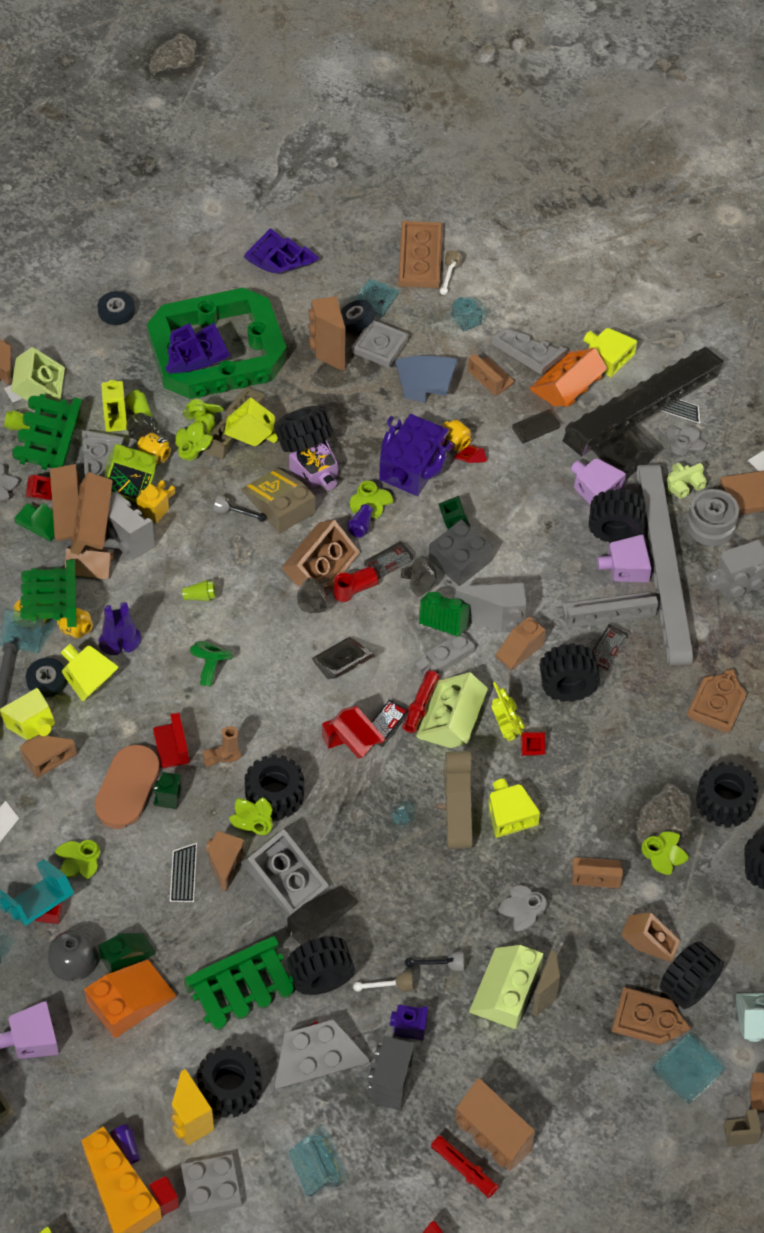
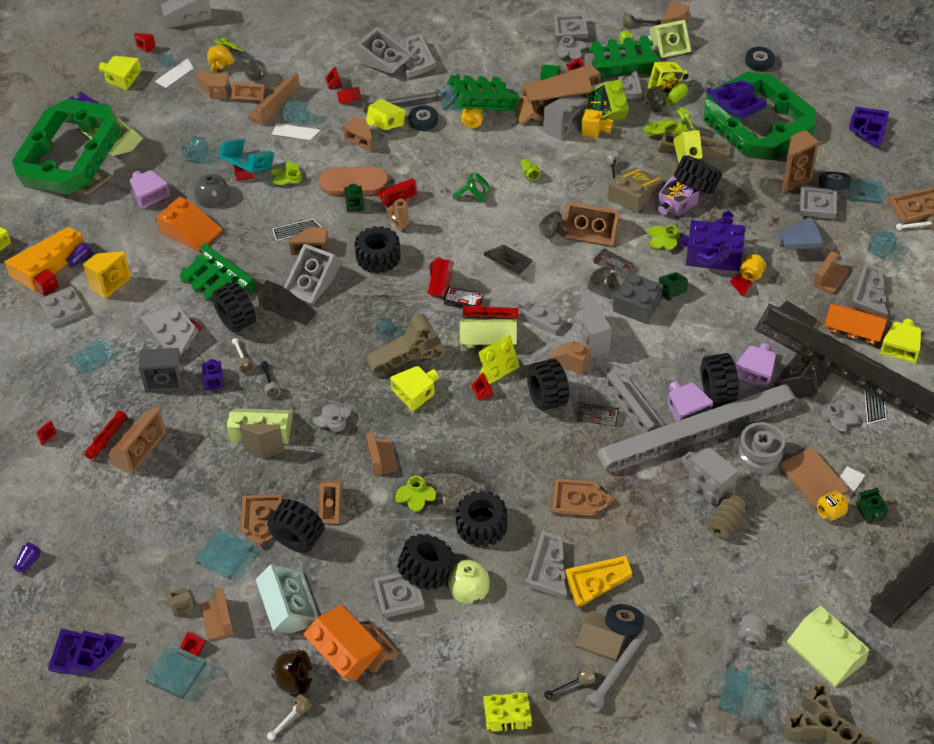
camera: 75 degrees right, 5 degrees down
(86, 670) = (431, 130): neon yellow torso -> none
(118, 625) = (470, 133): dark purple piece -> none
(125, 950) = (221, 213): dark green slope -> none
(156, 446) = (640, 109): yellow head -> none
(230, 1062) = (135, 289): black tyre -> none
(250, 814) = (347, 250): lime plate -> none
(348, 584) = (576, 245): red piece -> none
(360, 522) = (638, 235): dark purple cone -> none
(443, 613) = (571, 300): green brick -> none
(683, 477) = (796, 421): yellowish green hips -> none

